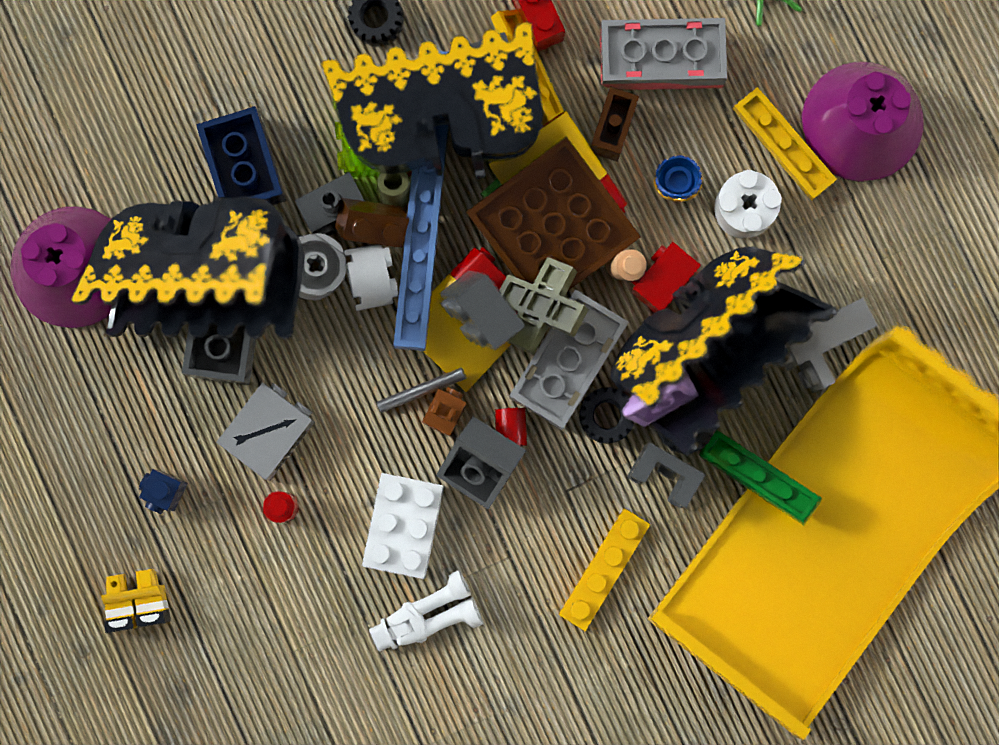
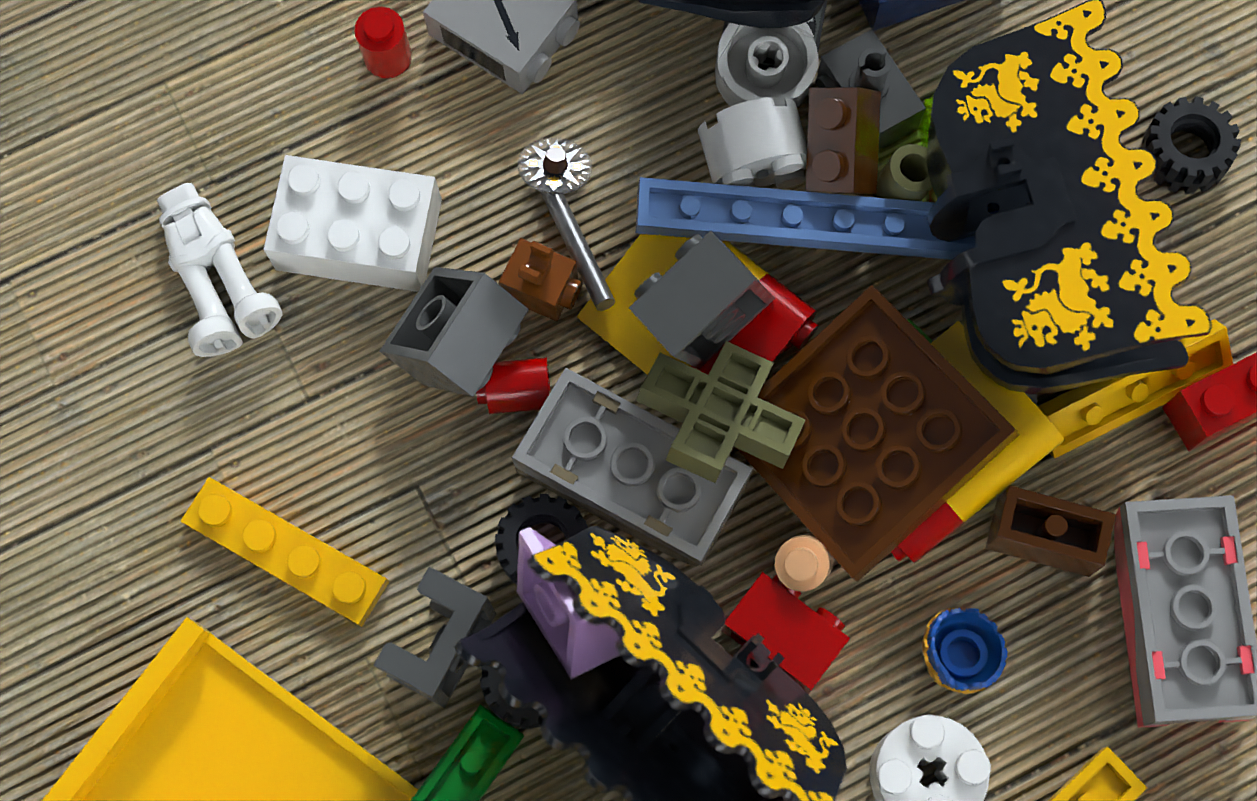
camera: 90 degrees right, 10 degrees down
(367, 402) = (554, 165): none -> piece

